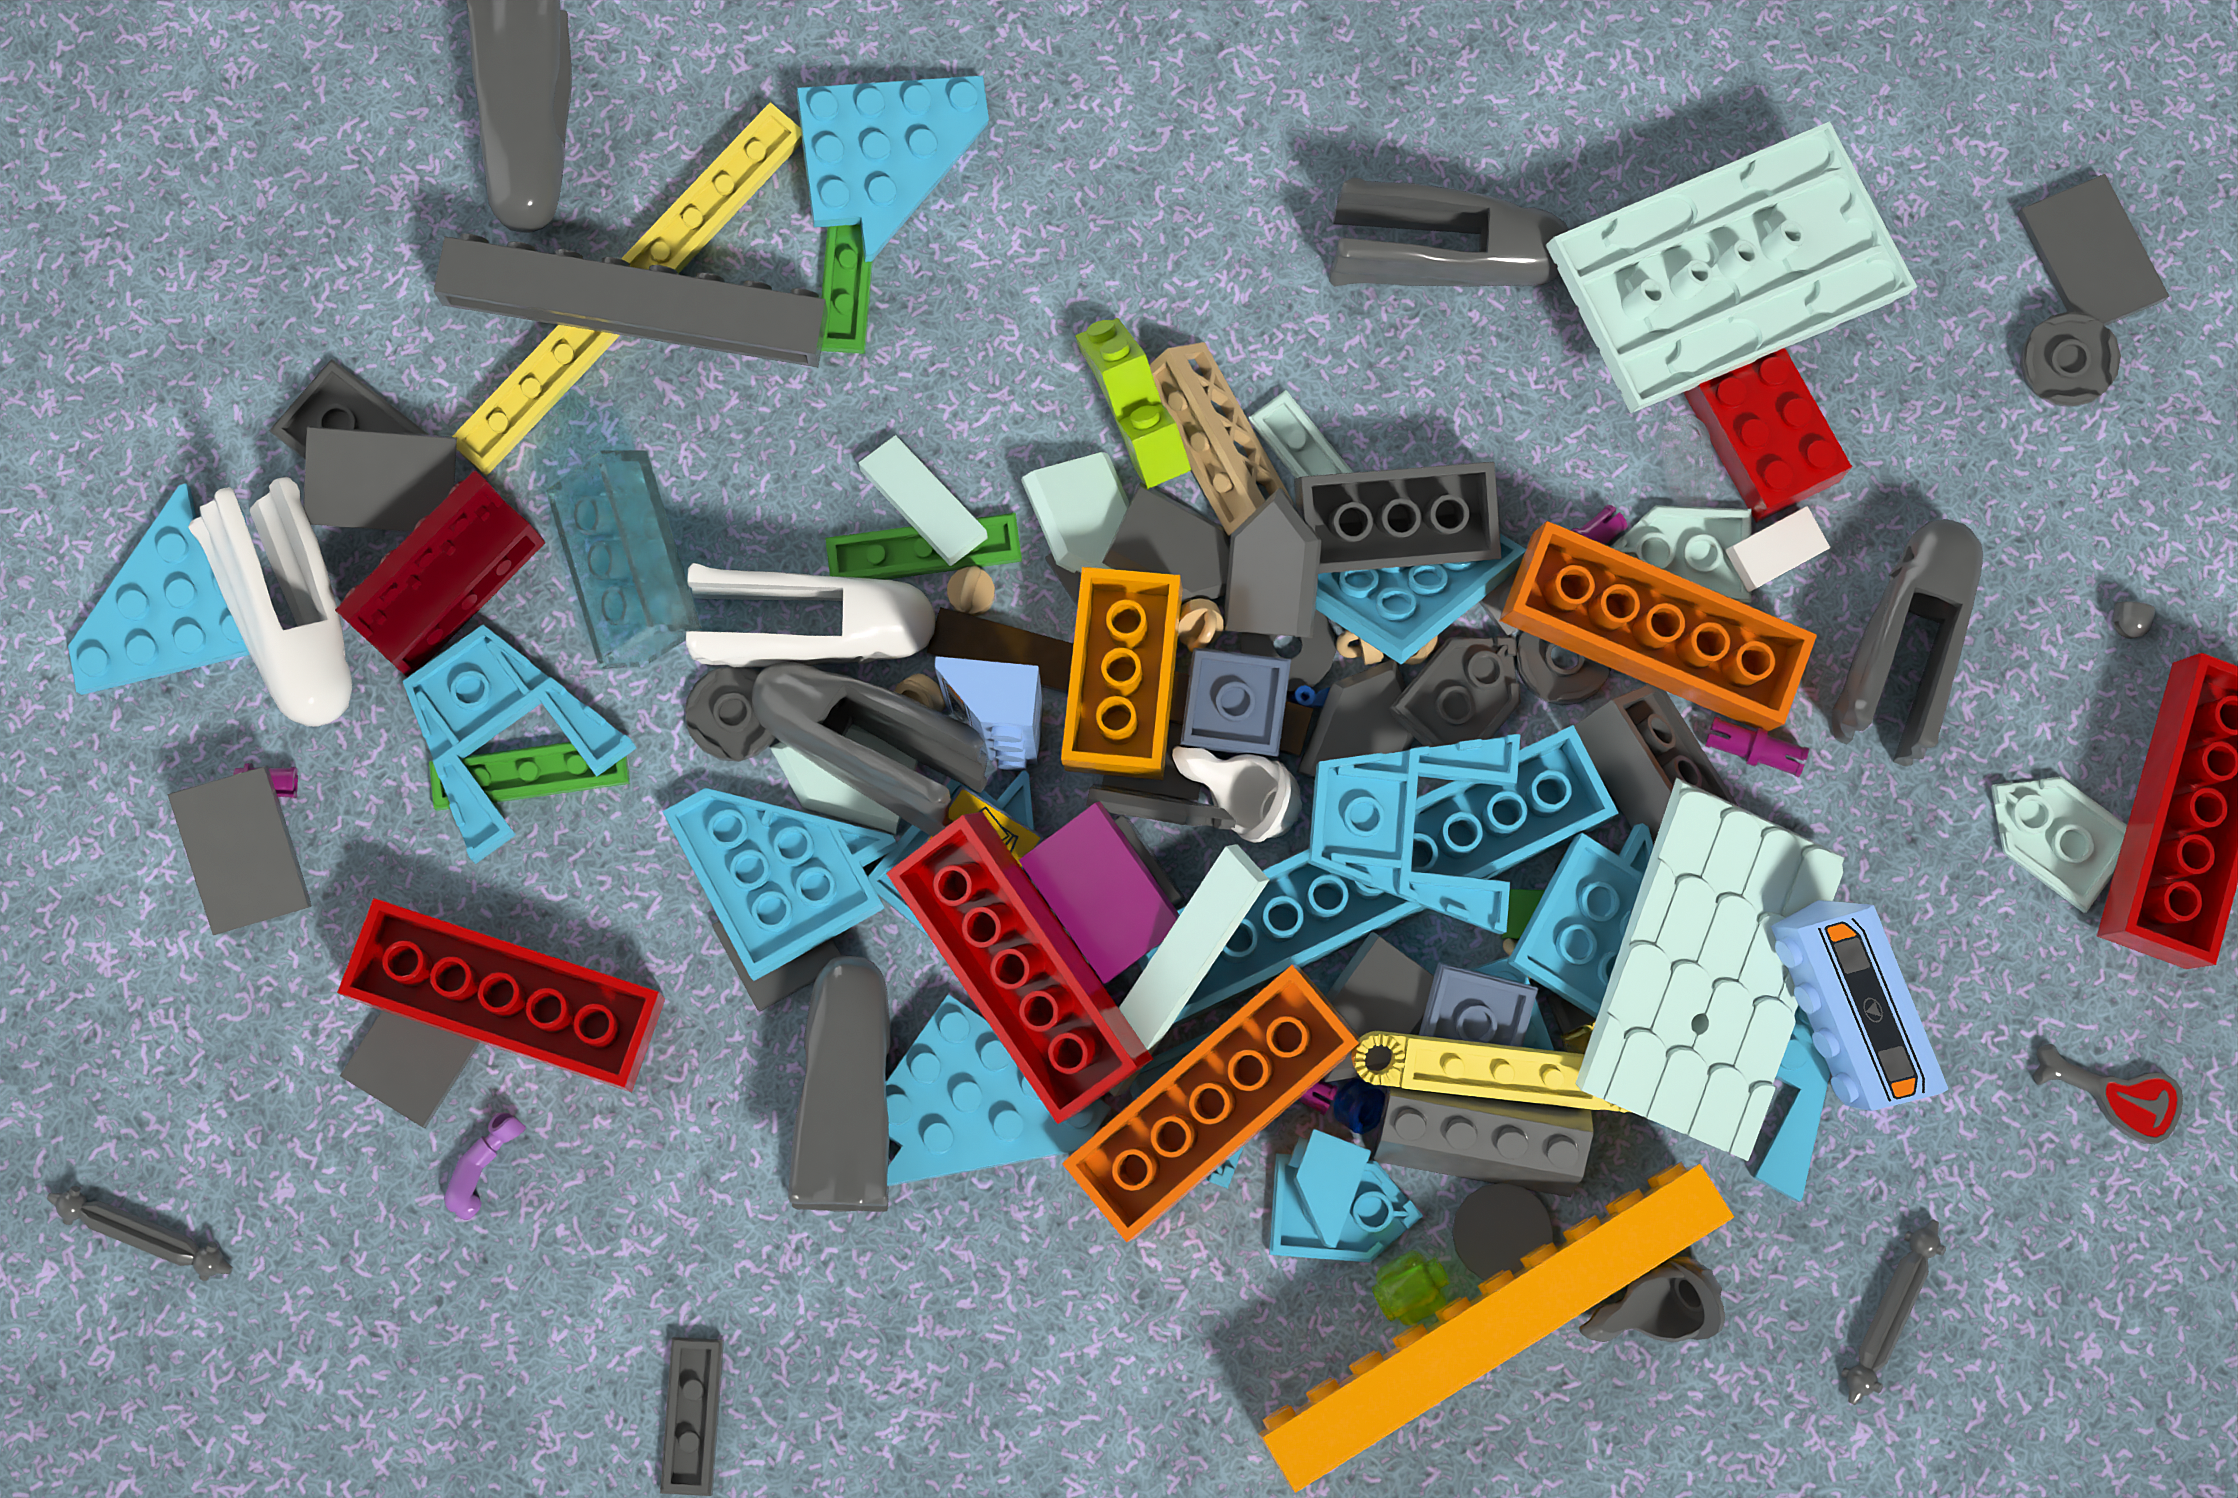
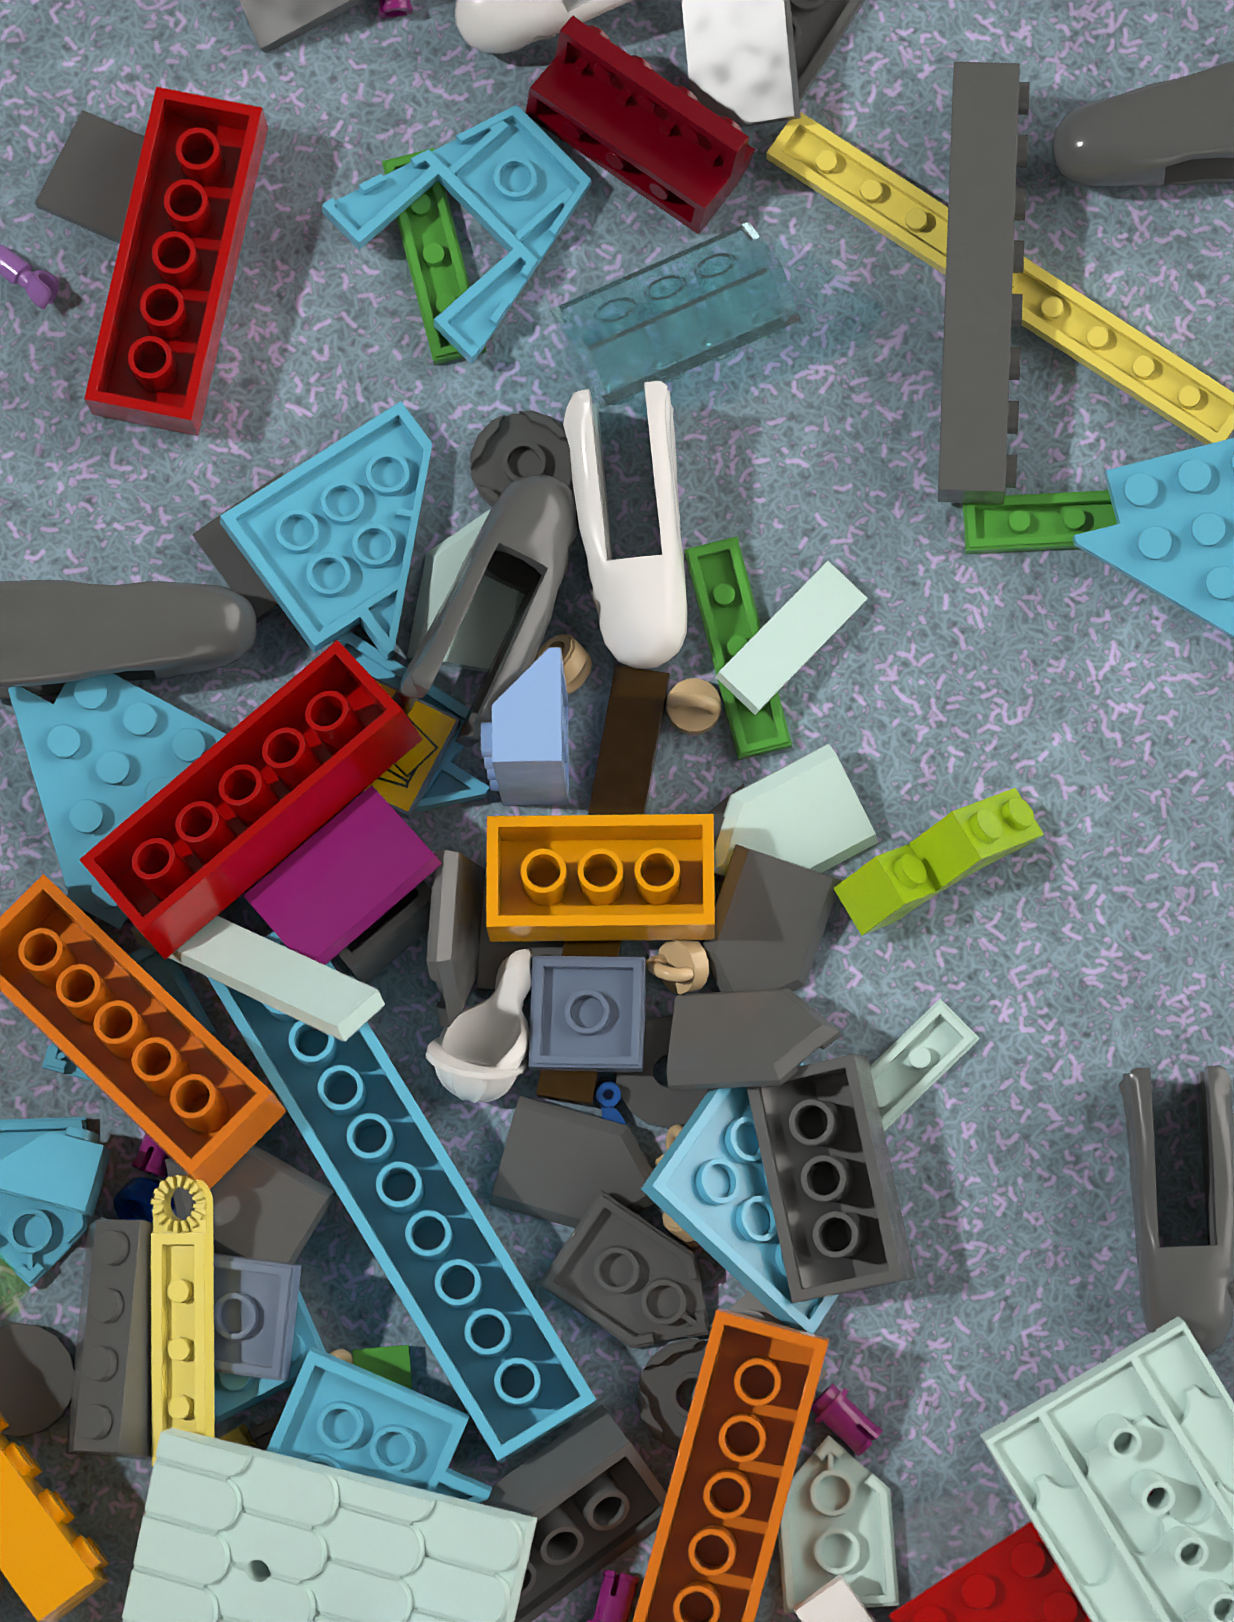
camera: 90 degrees right, 0 degrees up
(1208, 436) = (907, 953): tan fence -> none
(1368, 819) = (456, 1167): medium azure wing -> none

